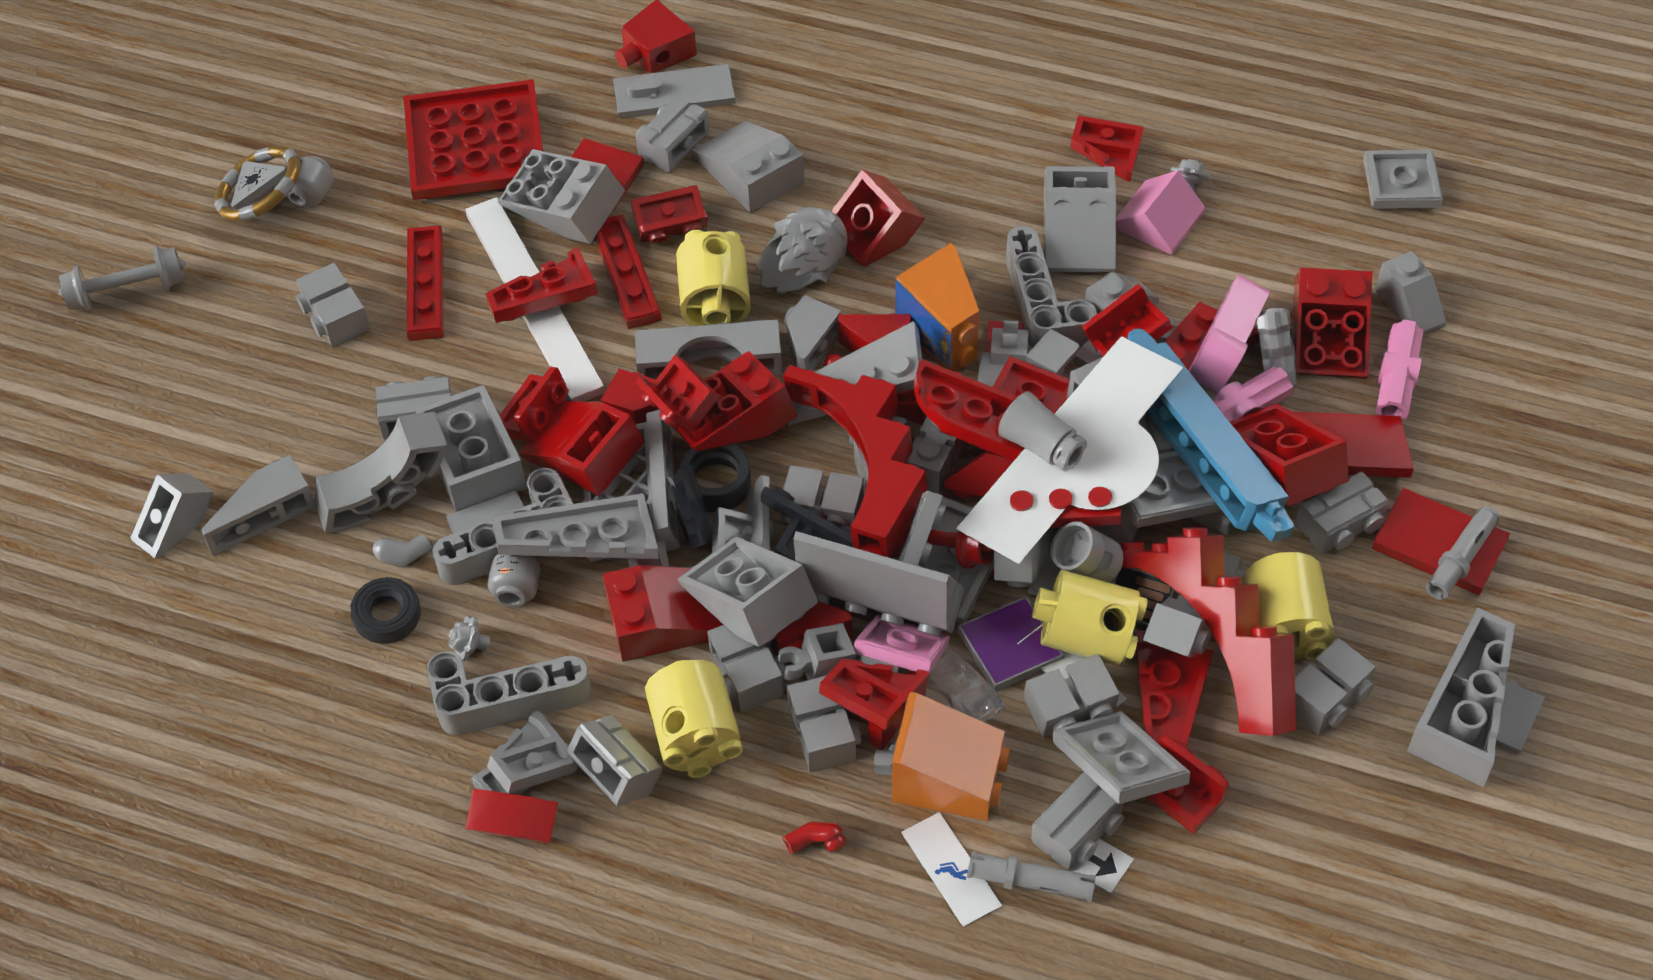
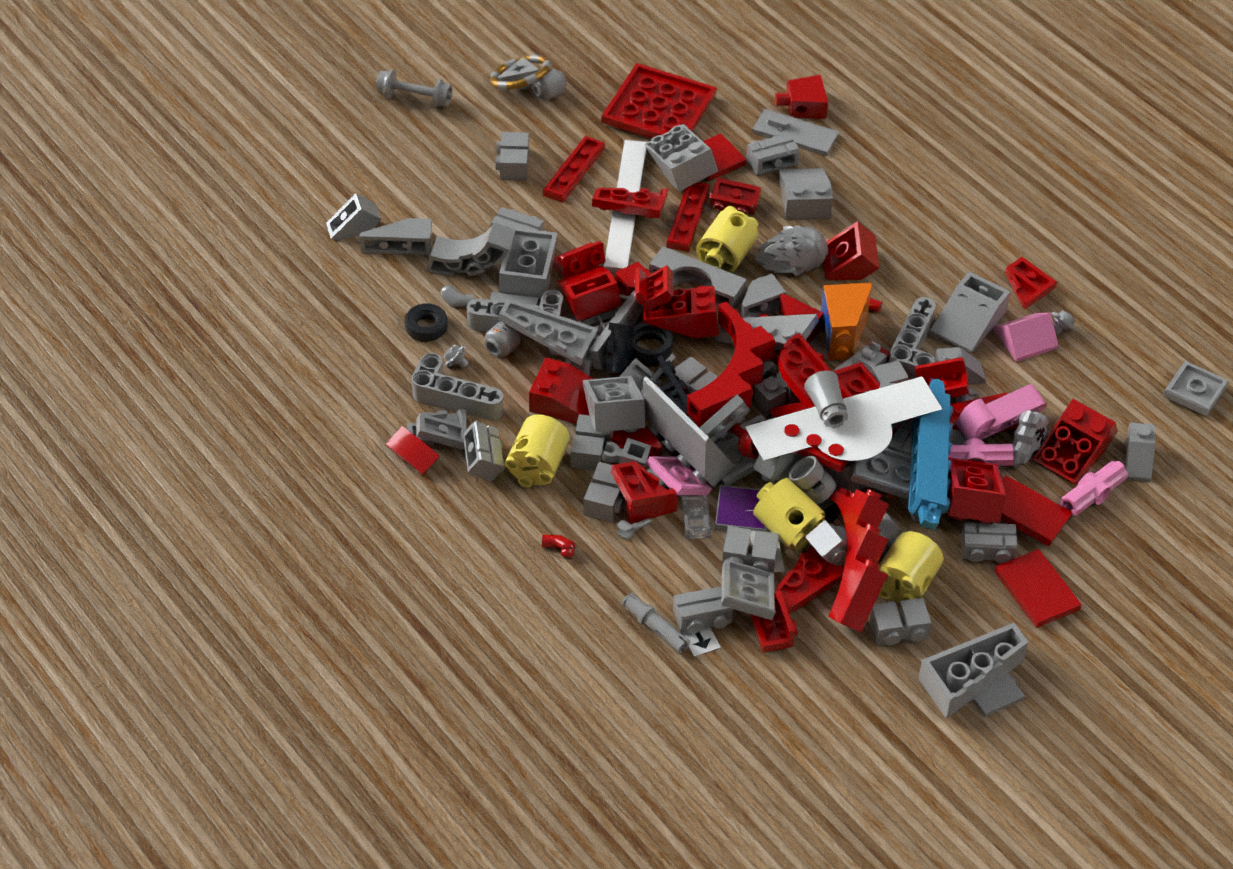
camera: 30 degrees right, 5 degrees down
(947, 760) = (654, 541): orange slope -> none
(948, 868) = (618, 585): white sticker -> none
(1456, 562) = (1030, 598): light grey pin -> none

